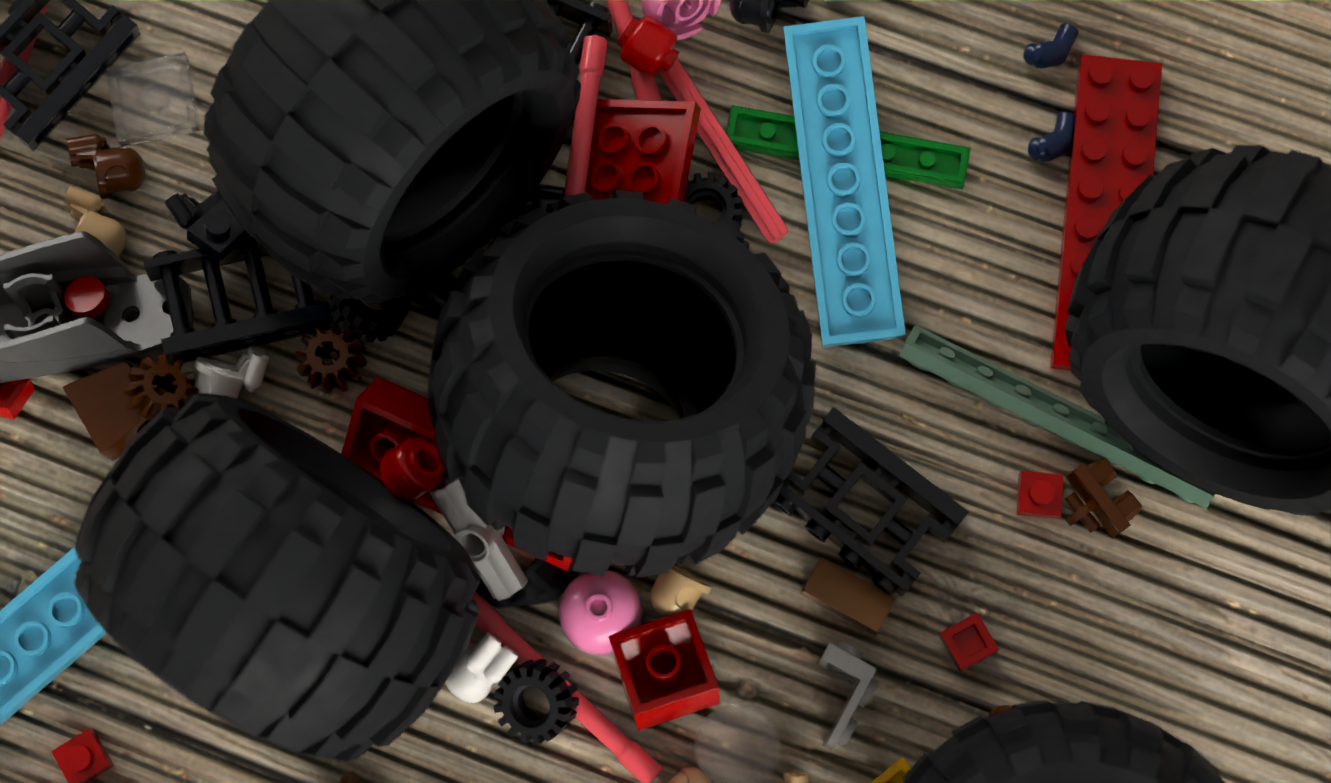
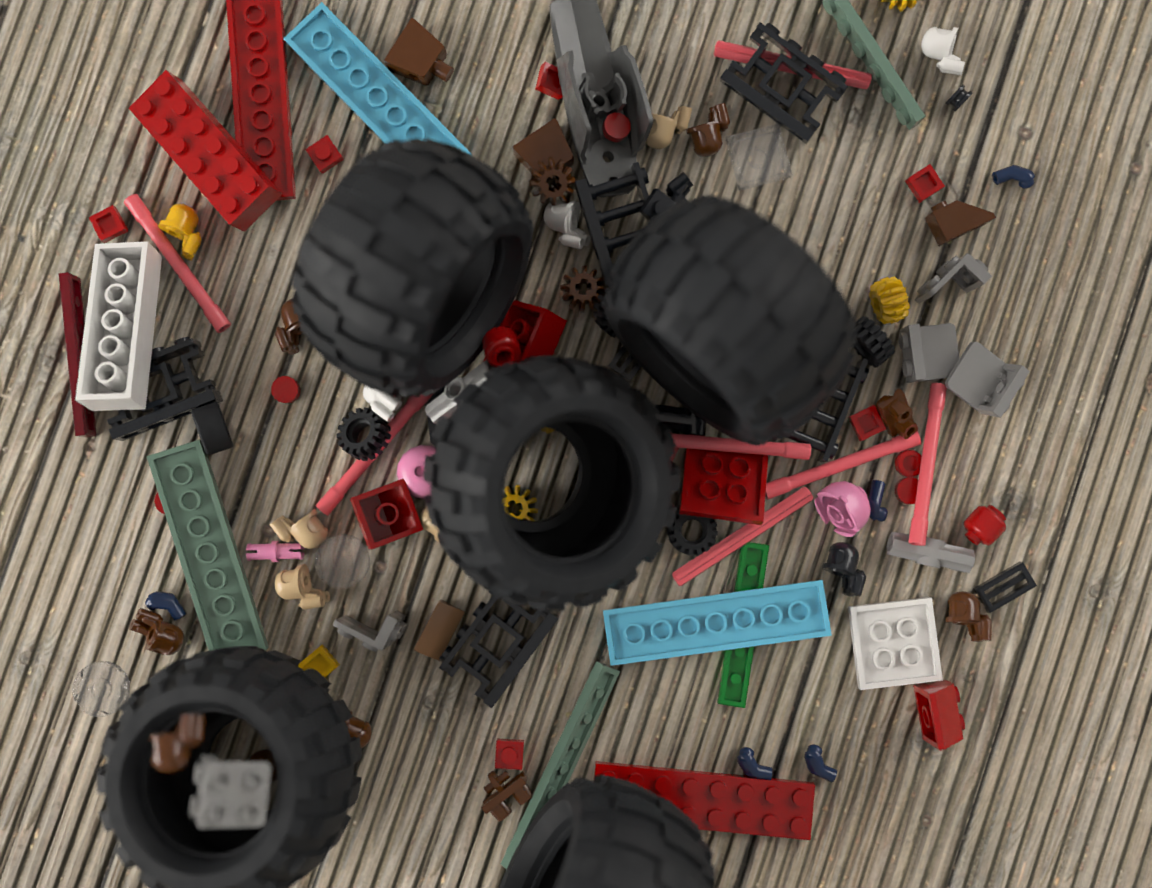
camera: 85 degrees right, 10 degrees up
(648, 46) = (804, 488): red head -> none
(968, 642) = (411, 708): red plate -> none

